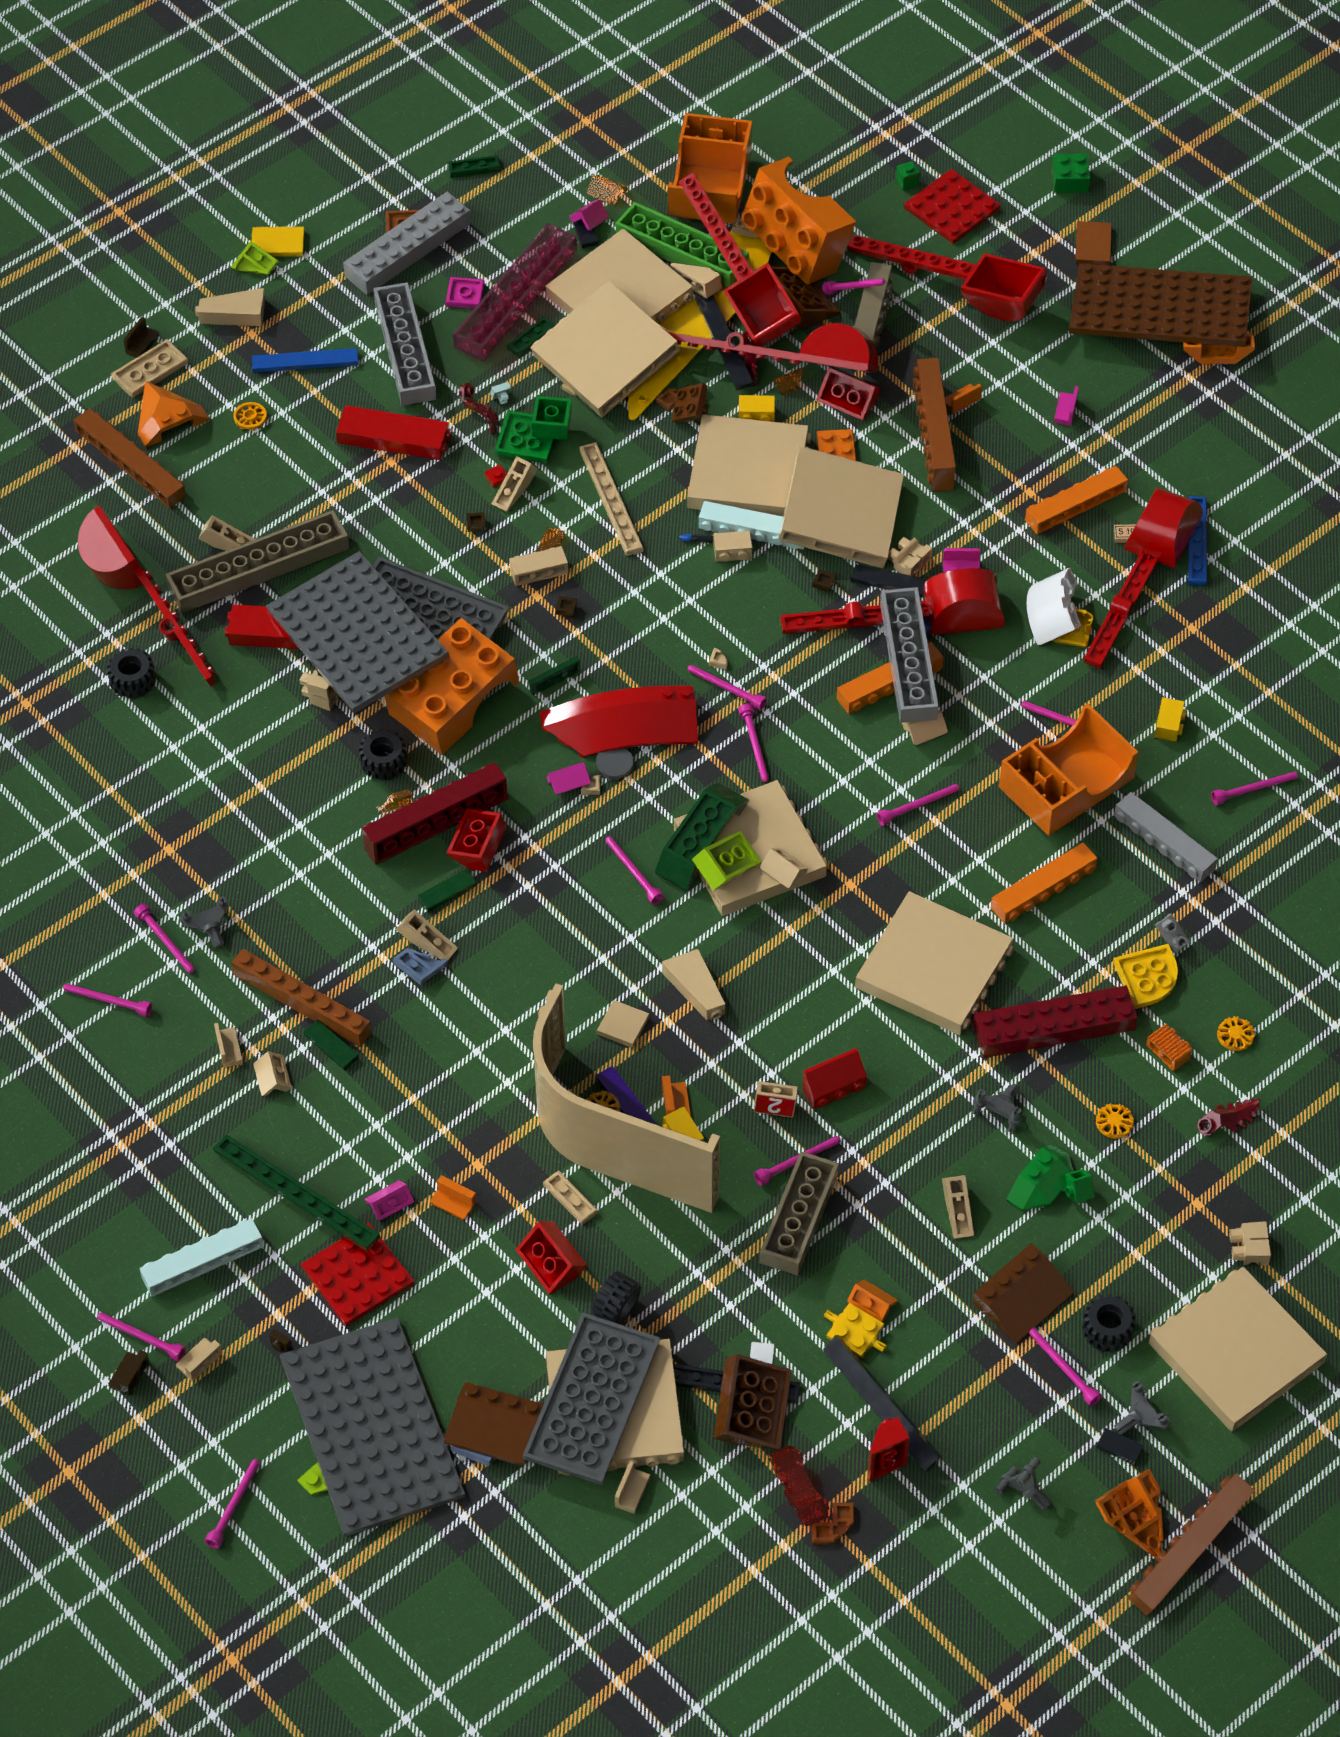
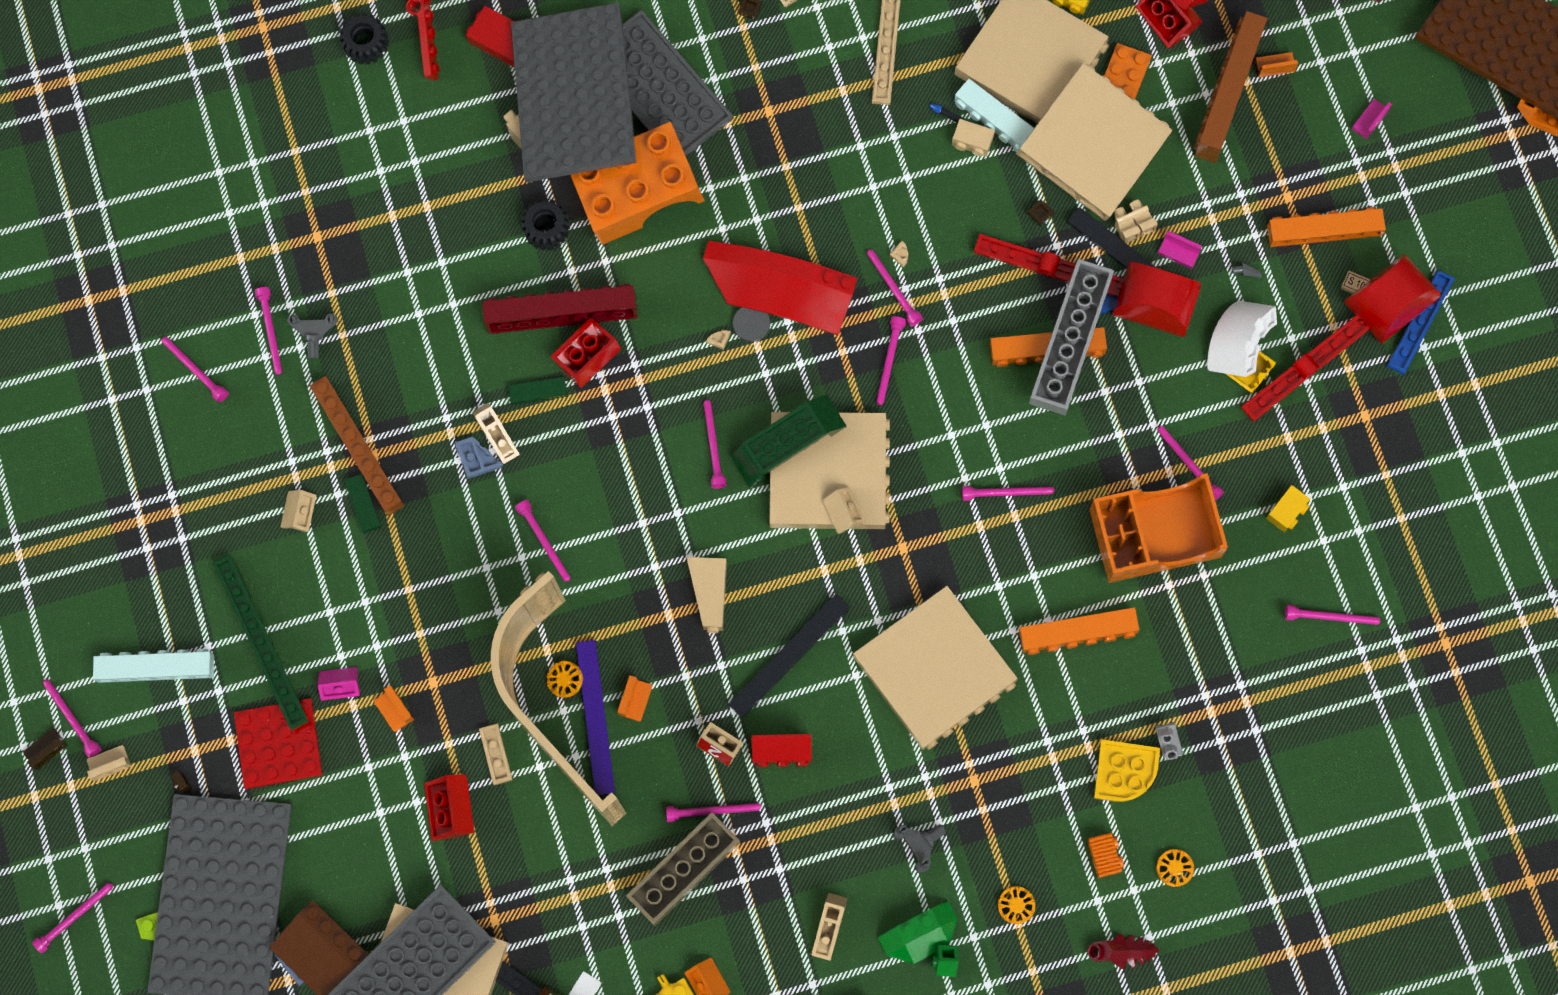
camera: 30 degrees right, 20 degrees up
(228, 1046) = (273, 464): tan panel -> none
(396, 801) = (535, 278): clear orange tile -> none
(487, 988) = (524, 509): none -> dark pink piece
(538, 566) = (783, 81): tan brick -> none
(551, 538) = (809, 57): clear orange tile -> none
(554, 675) = (740, 207): dark green tile -> none
(566, 606) = (788, 136): dark brown plate -> none
(569, 778) = (700, 324): dark pink panel -> none
(616, 1298) = (479, 882): black tyre -> none
(623, 1023) = (626, 599): tan tile -> none
(682, 1123) = (622, 737): yellow brick -> none
(726, 860) = (793, 482): lime slope -> none
(797, 1009) = (789, 656): none -> black tile
(926, 730) = (1050, 419): tan panel -> none
(1027, 557) = (1246, 271): none -> dark grey bar
(1055, 1021) = (1013, 780): dark red brick -> none
(1165, 837) = (1218, 633): light grey brick -> none

